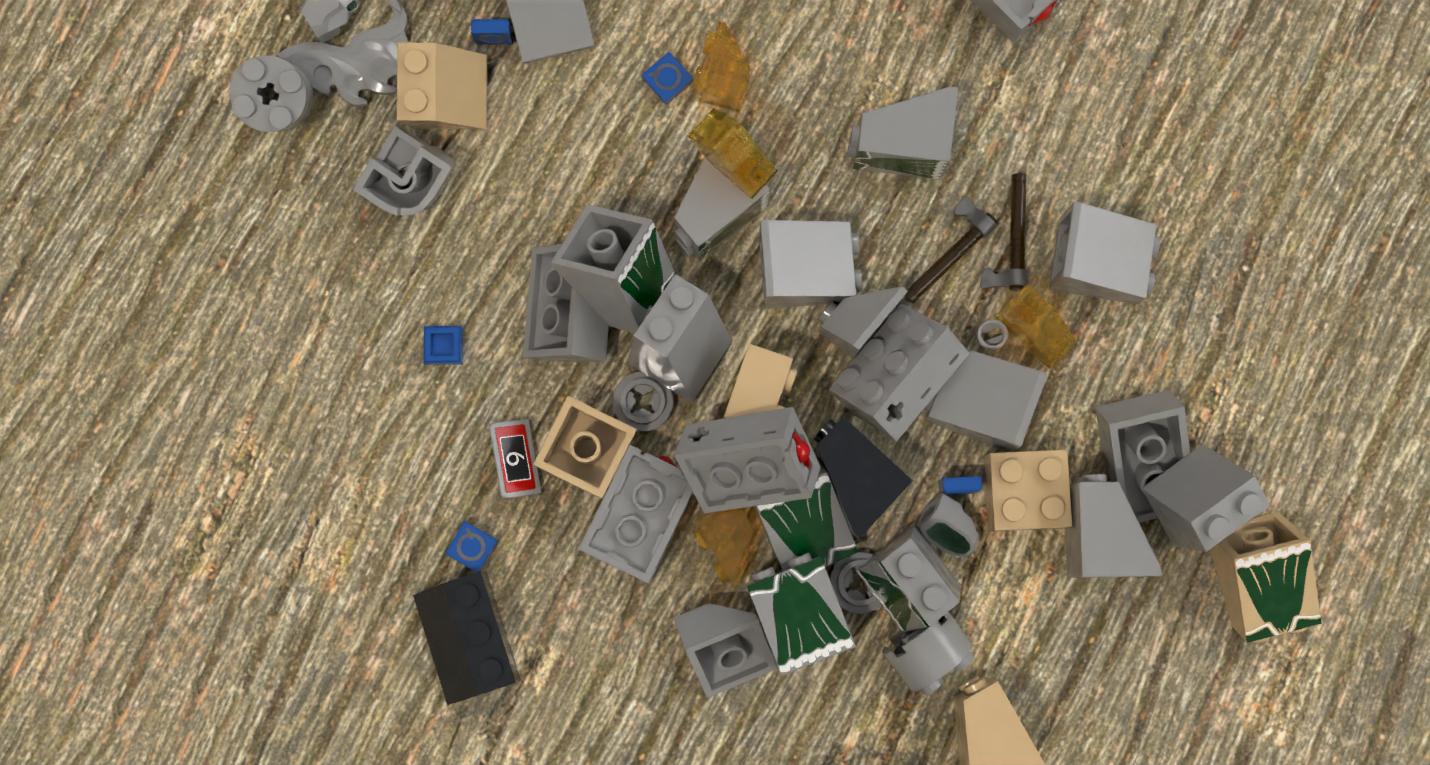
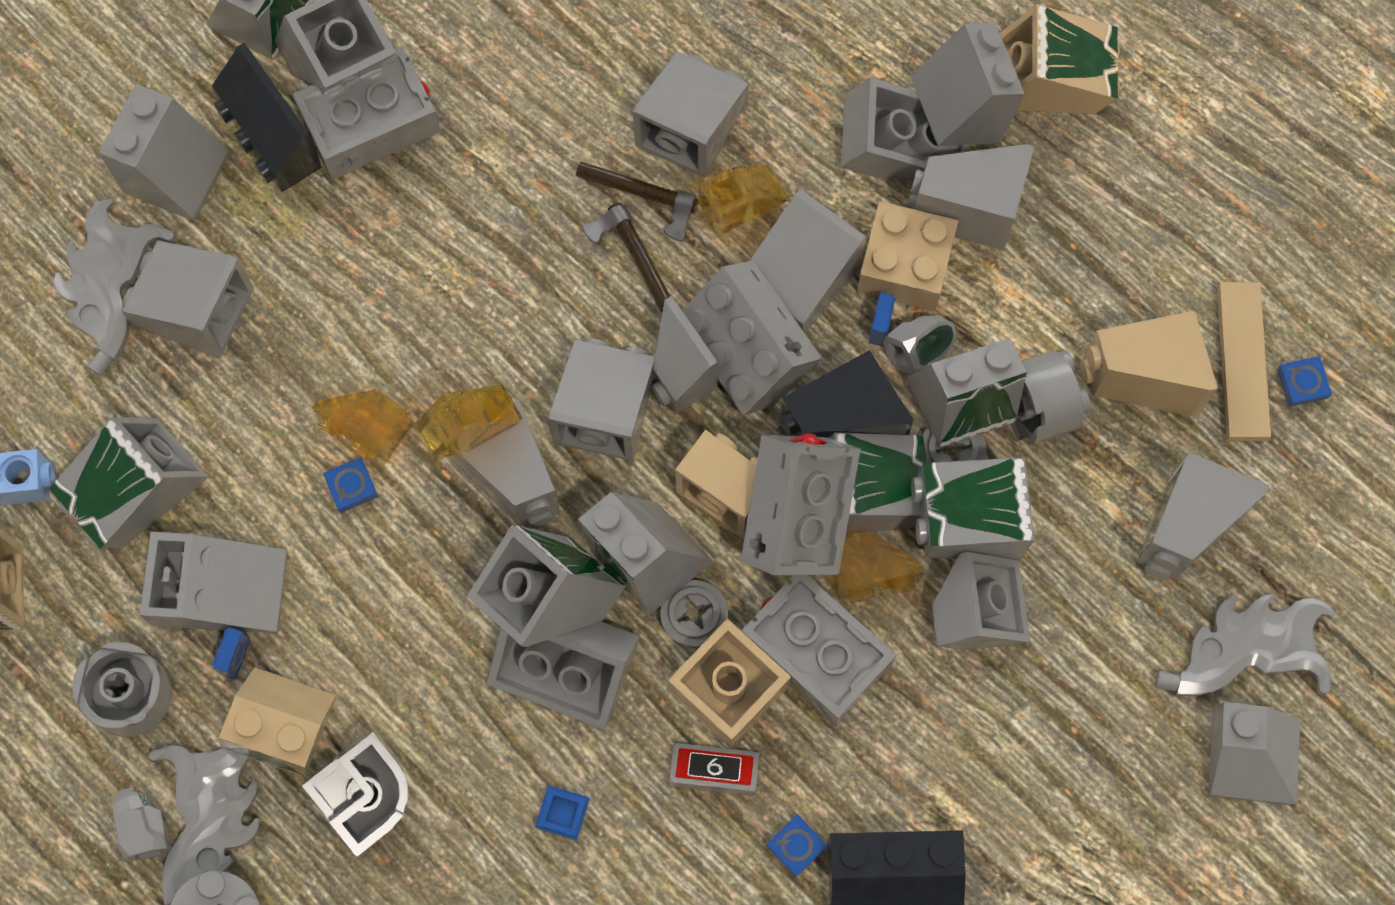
camera: 75 degrees left, 10 degrees down
(907, 136) = (507, 254): light grey slope -> none
(995, 341) = (743, 241): light grey hinge -> none

